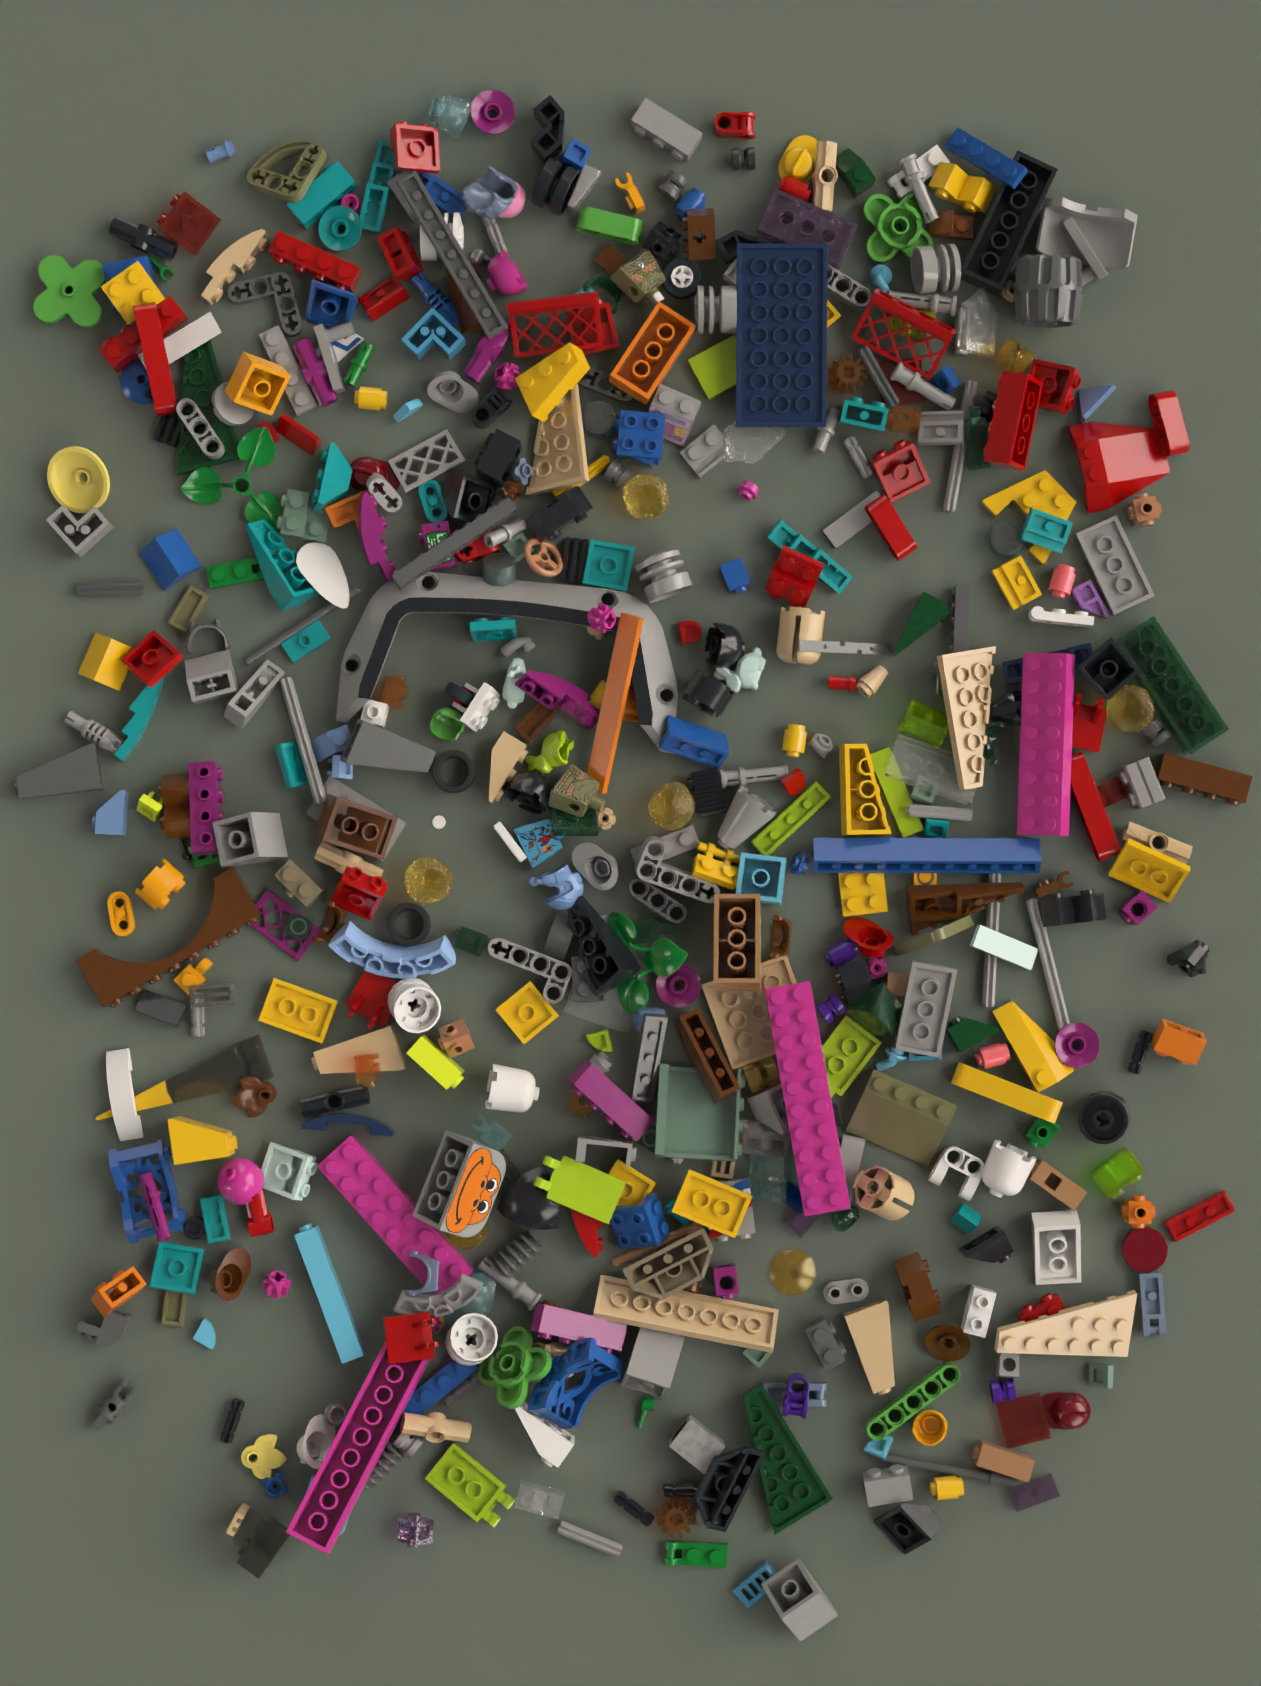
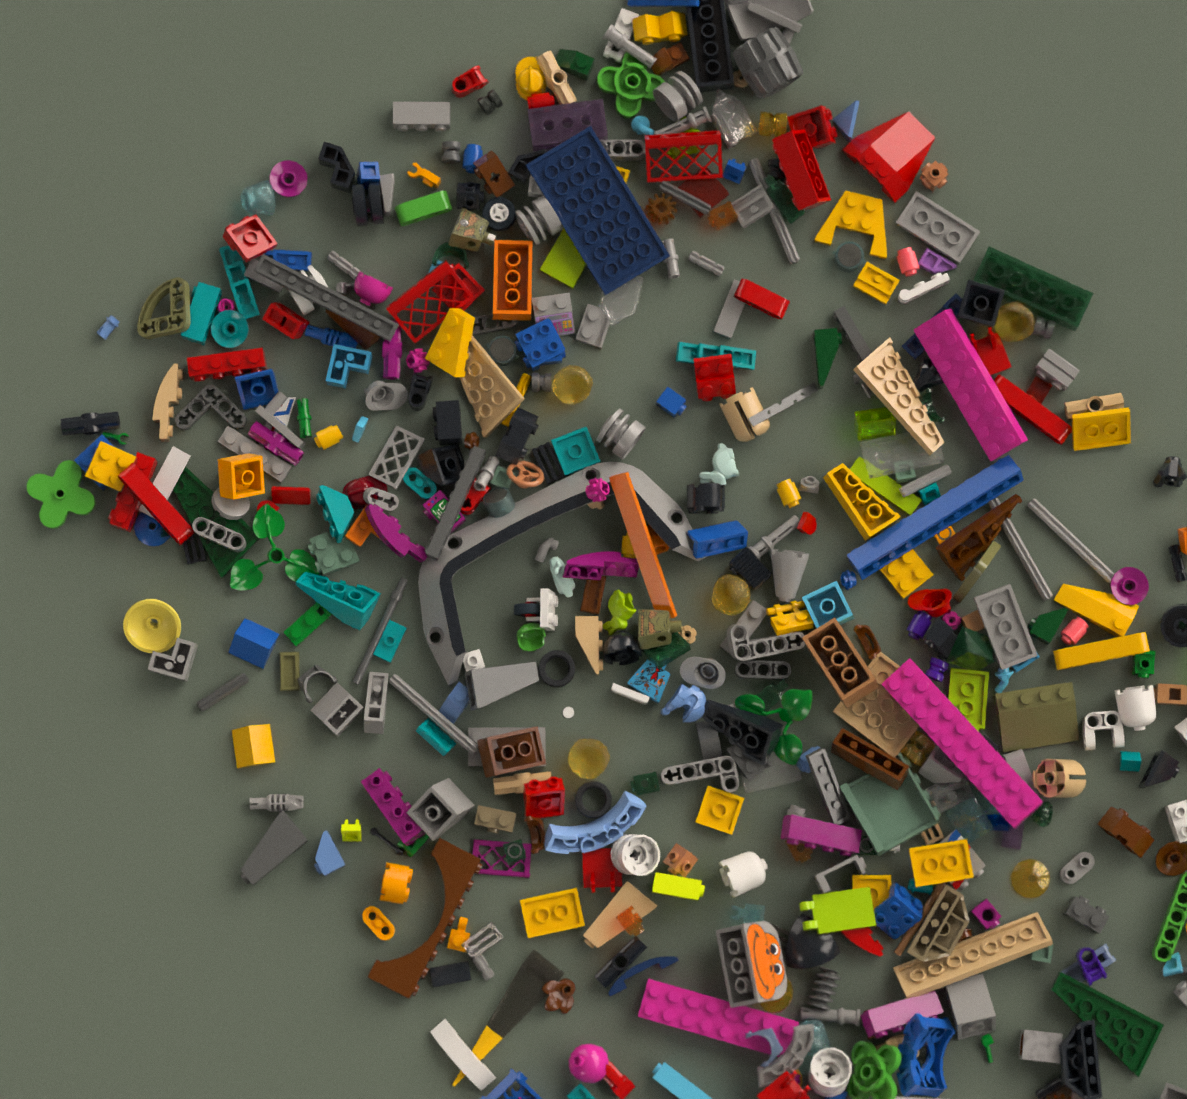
camera: 30 degrees left, 5 degrees down
(144, 708) = (302, 763): teal slope -> none
(152, 659) = (287, 722): red plate -> none
(177, 805) = (371, 818): reddish brown brick -> none
(188, 222) = (116, 392): clear red plate -> none
(199, 1141) = (541, 1052): yellow slope -> none
(288, 1171) = (618, 1034): light aqua plate -> none
(324, 572) = (372, 583): white sticker -> none
(340, 769) = (473, 717): light blue tile -> none
(383, 298) = (292, 359): red slope -> none
(395, 691) = (478, 637): clear orange brick -> none
(494, 196) = (328, 237): sand blue hair -> none
(499, 630) = (516, 552): teal plate -> none
(521, 471) = (470, 422): sand blue plate -> none
(600, 1040) = (785, 797): lime tile -> none
(610, 260) = (439, 232): reddish brown tile -> none
(679, 997) = (824, 729): magenta dish -> none
(689, 632) = (663, 462): red tile -> none
(724, 645) = (695, 457): black cylinder -> none
(748, 490) = (642, 335): dark pink plate -> none
(790, 819) = (821, 552): lime tile -> none
(842, 683) = (796, 431): red pin -> none
(864, 415) = (691, 231): teal brick -> none
(871, 681) = (817, 417): tan cone -> none
(872, 1339) = (1120, 892): tan slope -> none
(899, 470) = (741, 254): red plate -> none
(914, 382) = (711, 185): light grey pin -> none
(1004, 947) = (1033, 548): light aqua tile -> none
(1046, 530) = (873, 232): teal plate -> none
(1046, 887) = (1035, 486): reddish brown plate -> none
(1073, 909) = (1065, 490): black brick -> none
(1146, 904) = (1115, 455): magenta brick -> none
(1168, 423) = (912, 103): beam -> none
(1203, 778) = (1097, 339): reddish brown brick -> none

